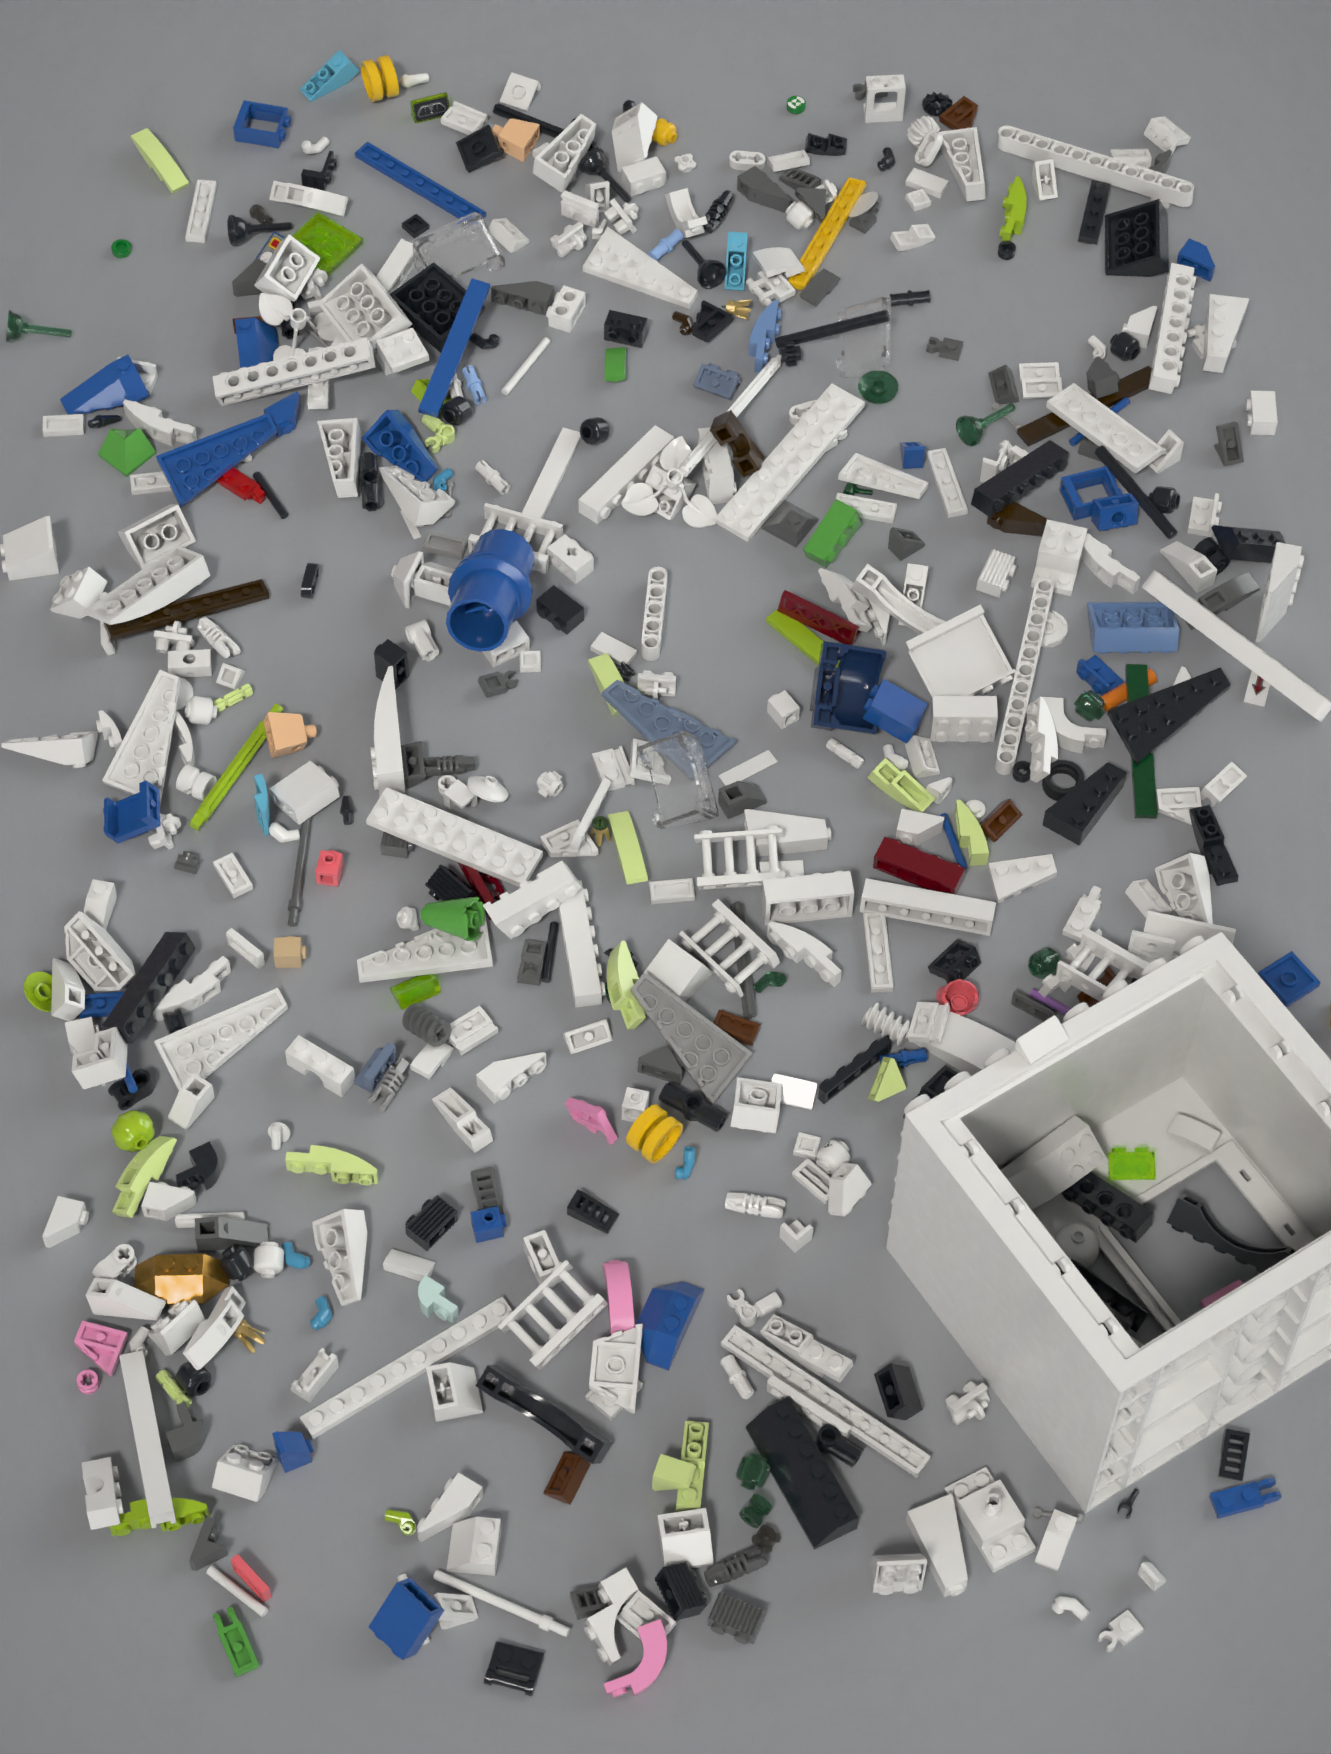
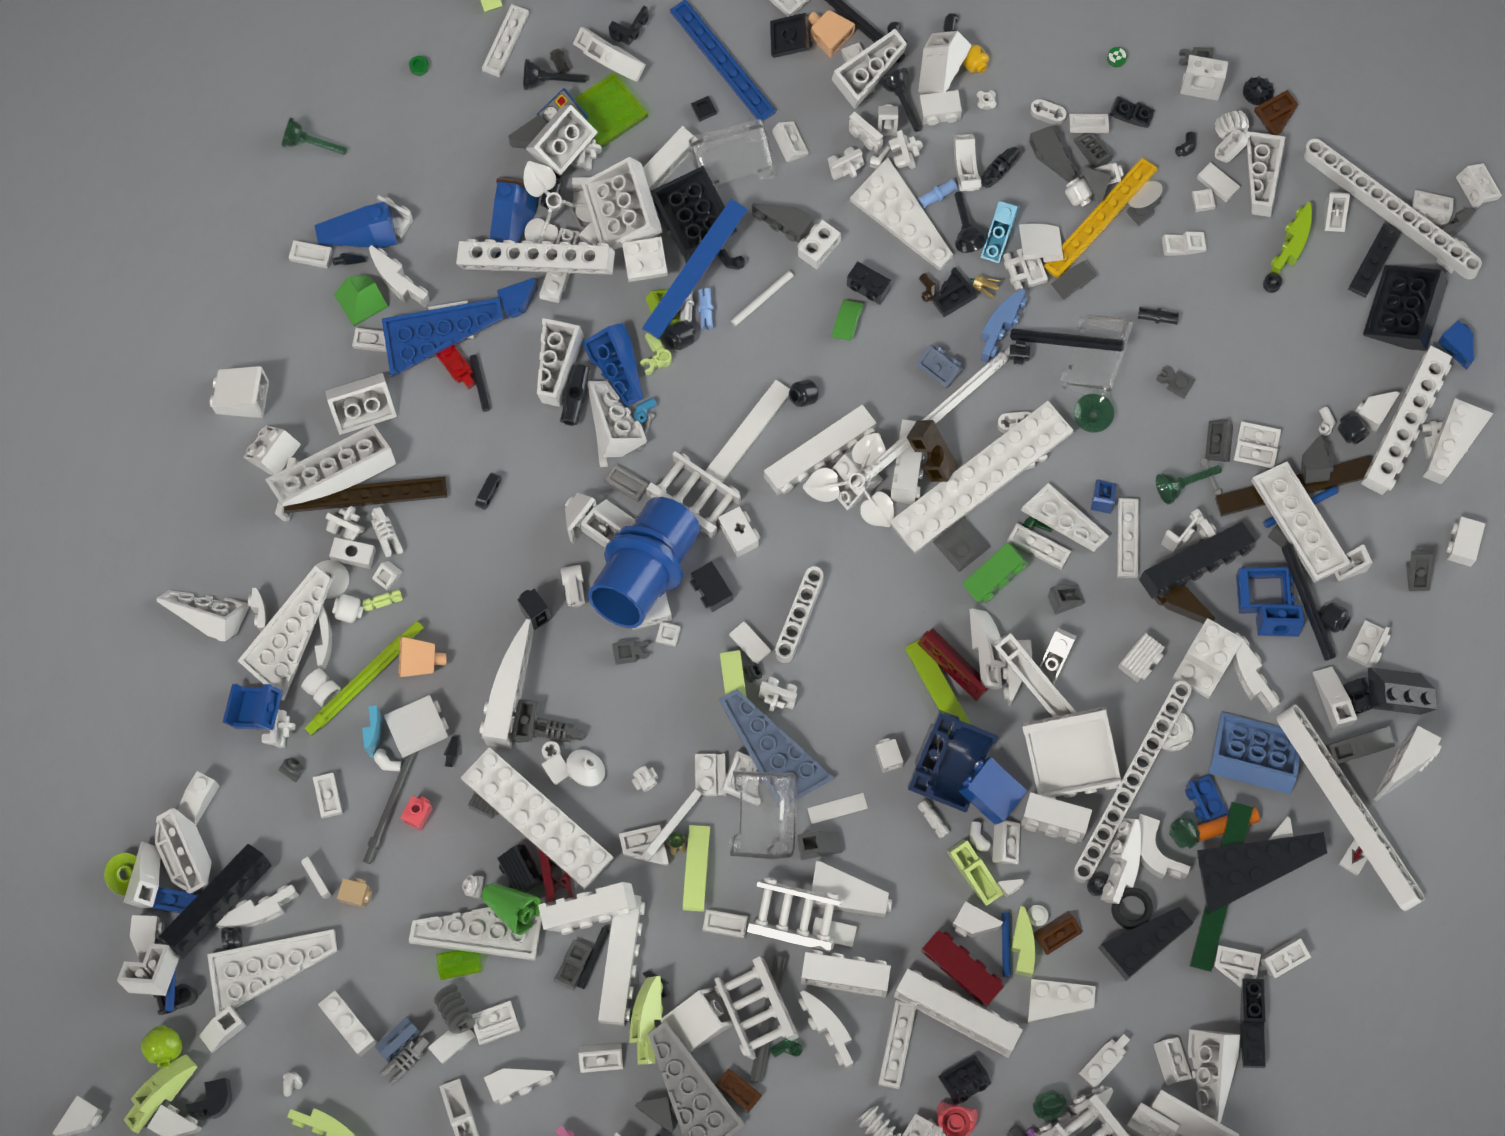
camera: 20 degrees right, 15 degrees up
(492, 477) = (692, 418): white pin -> none

